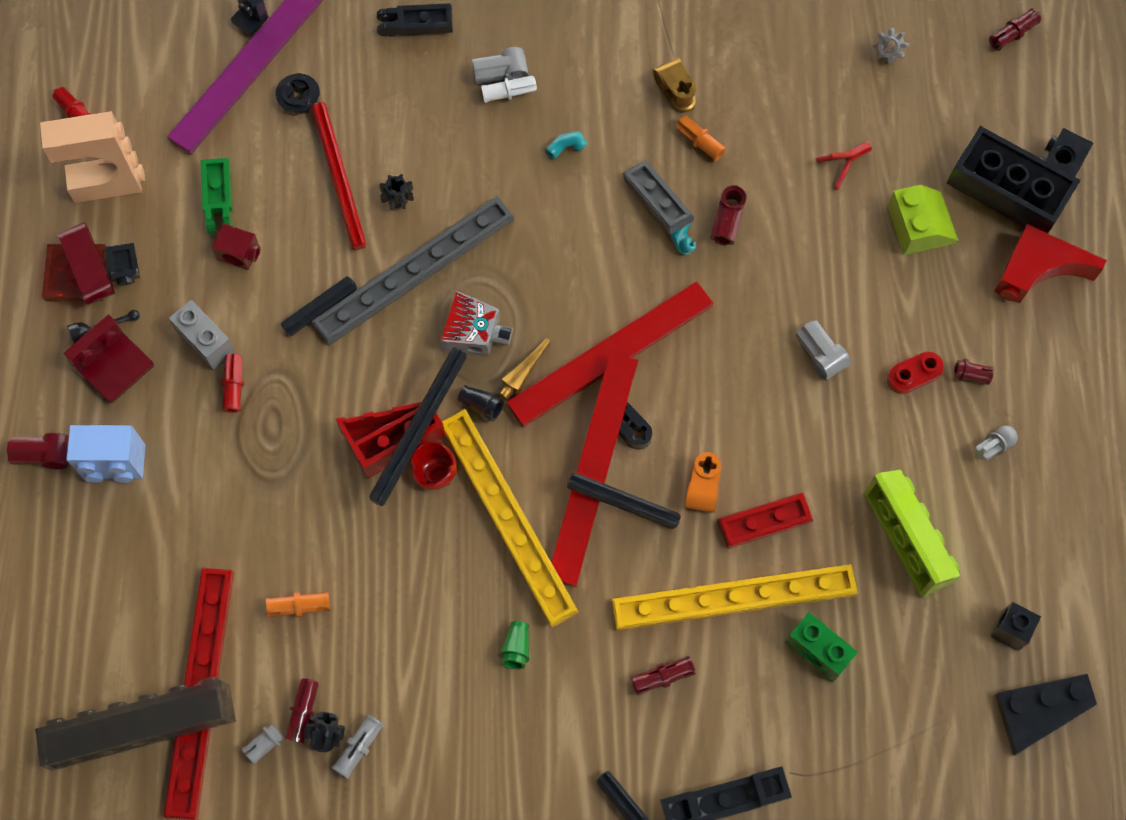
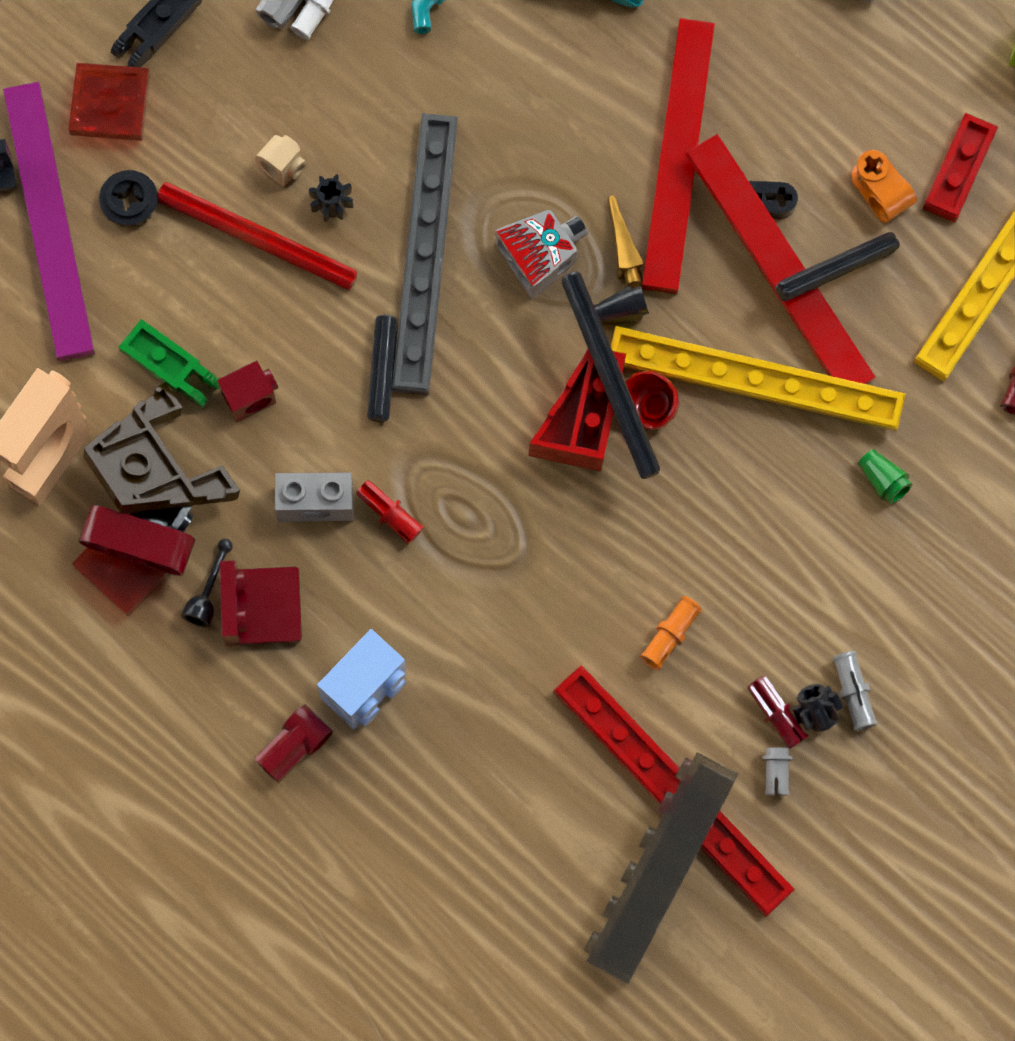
camera: 50 degrees left, 5 degrees up
(130, 225) = (140, 469): none -> wing
(345, 36) = (109, 101): none -> clear red plate
(395, 148) = (281, 159): none -> tan plate

